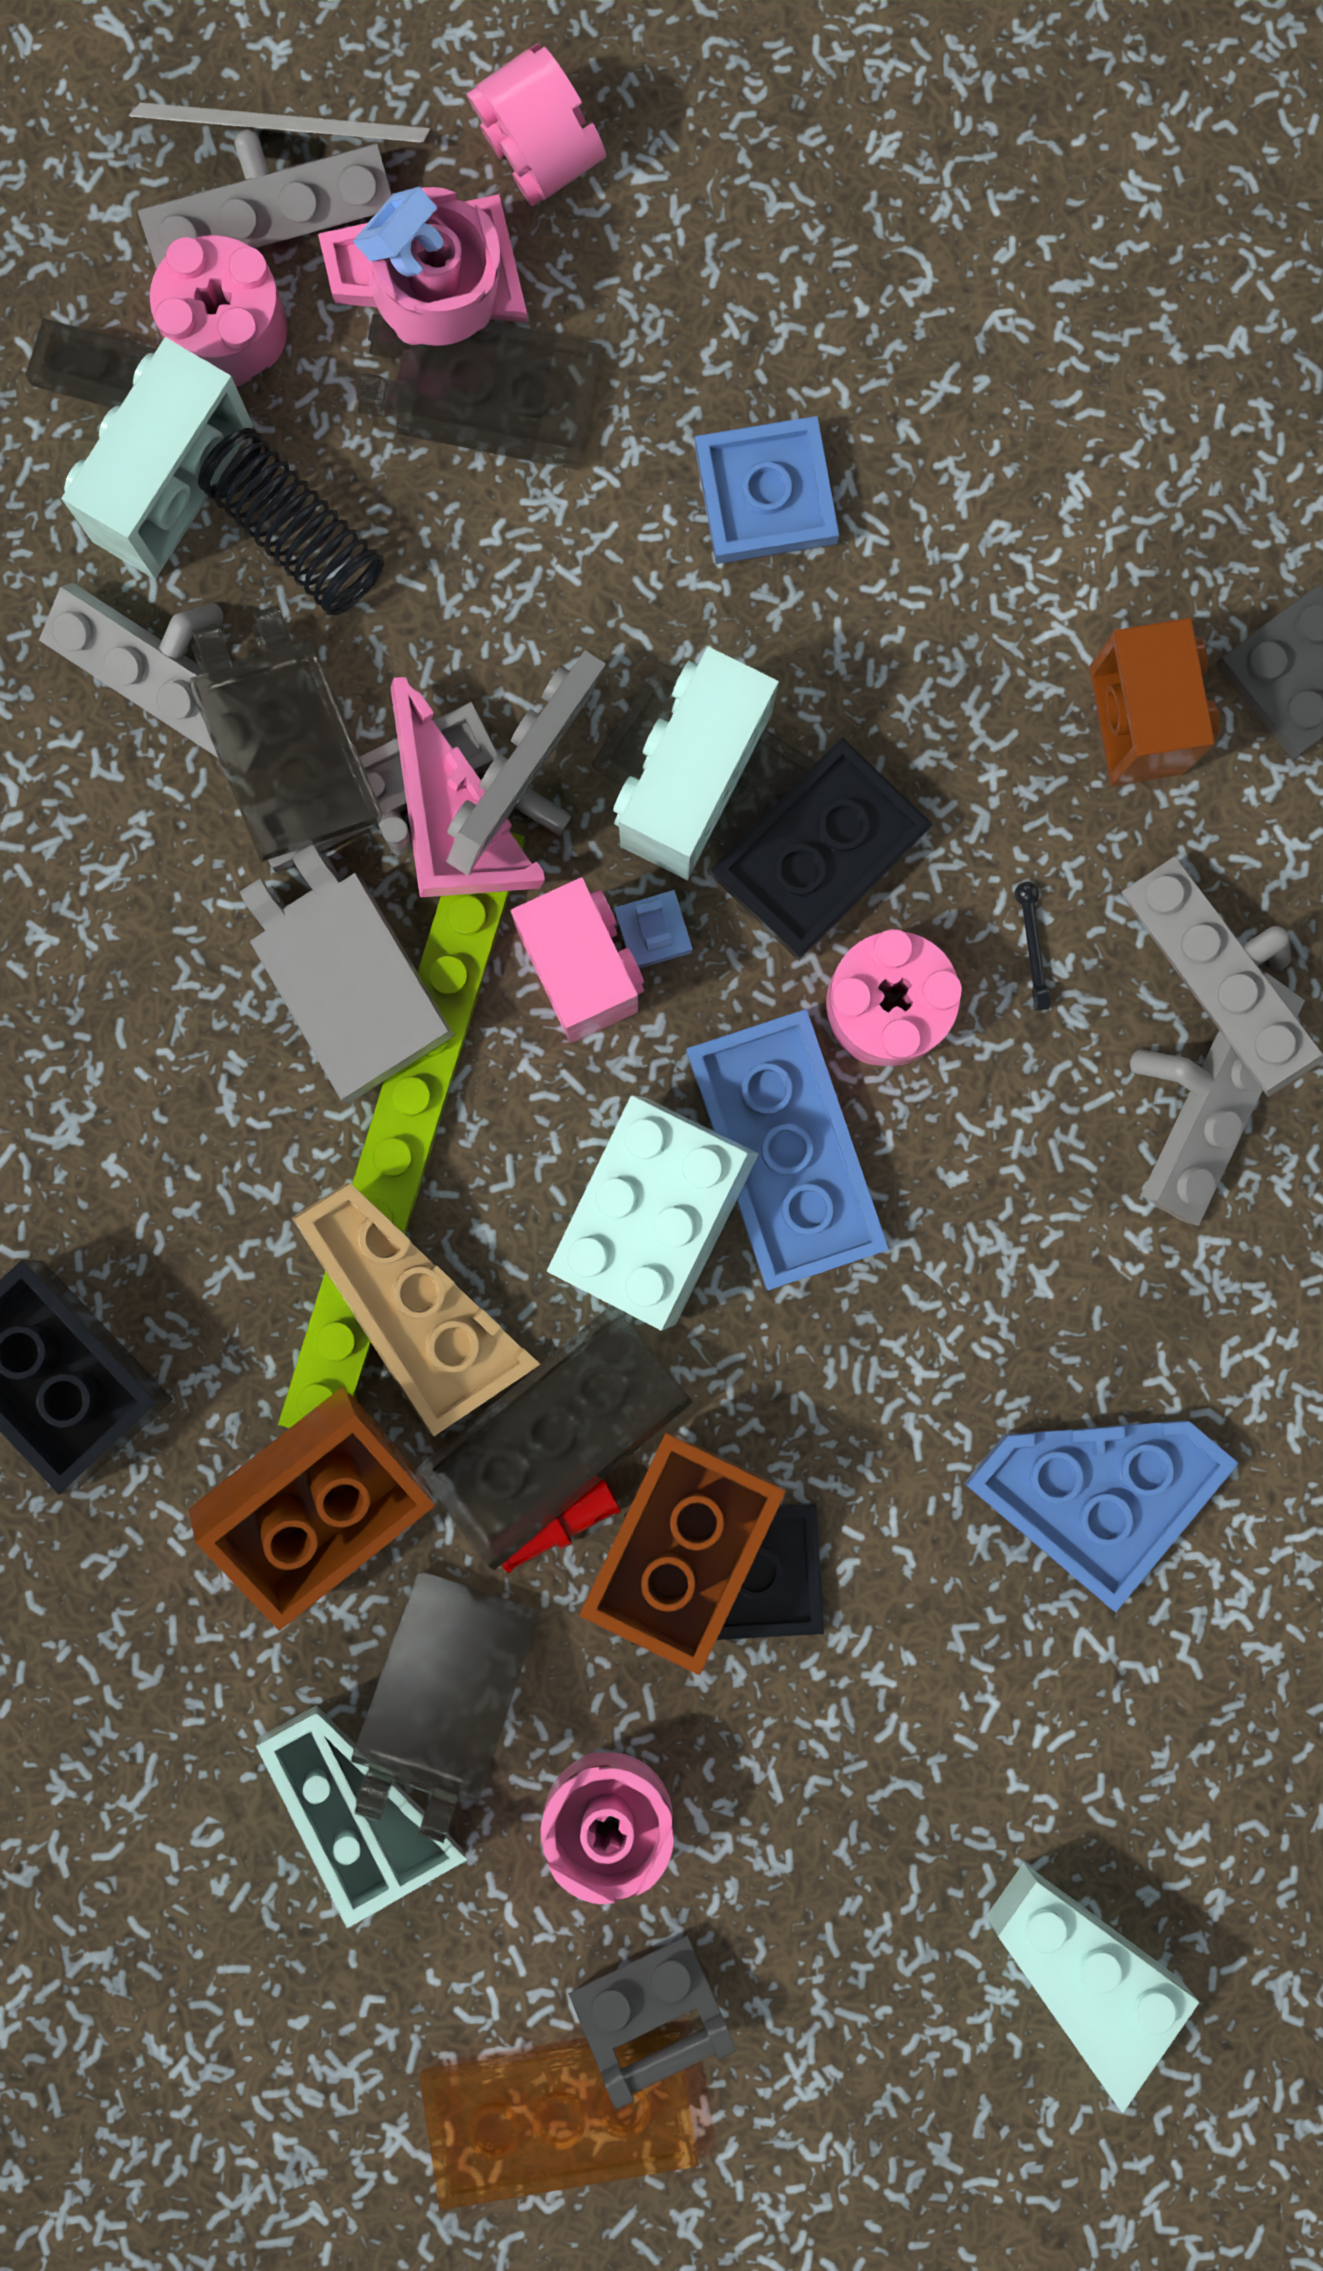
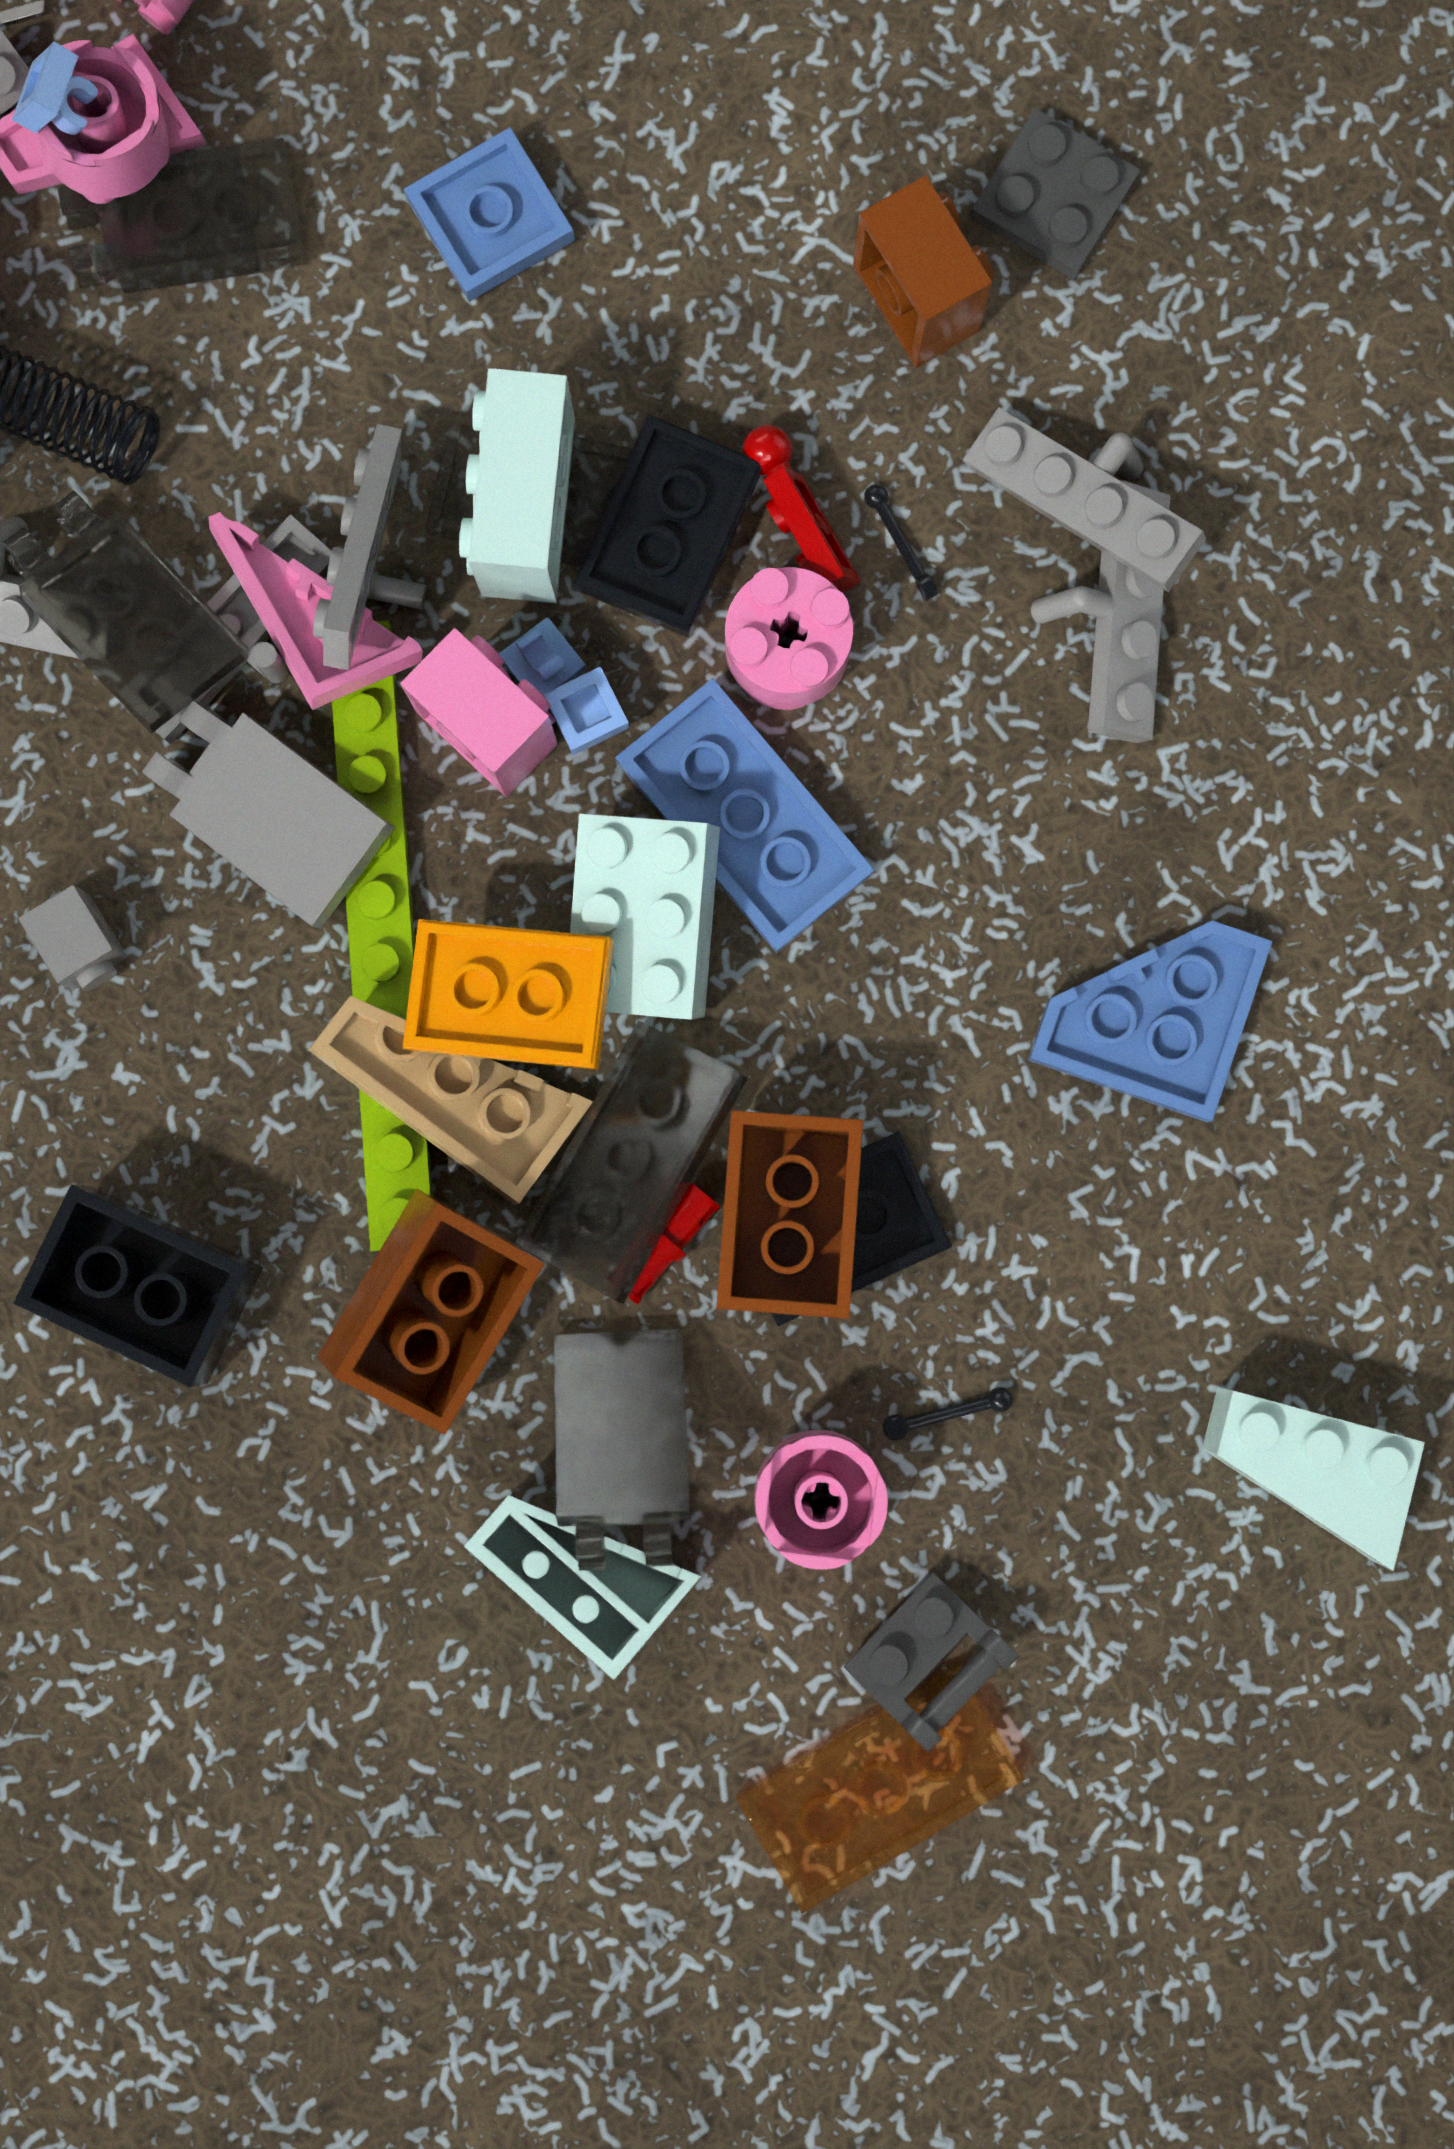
camera: 15 degrees left, 0 degrees up
(115, 1024) = (74, 939): none -> light grey brick
(499, 1241) = (508, 994): none -> light orange tile
(676, 995) = (586, 711): none -> light blue tile
(706, 1783) = (896, 1427): none -> black hinge
(948, 881) = (796, 508): none -> red plate

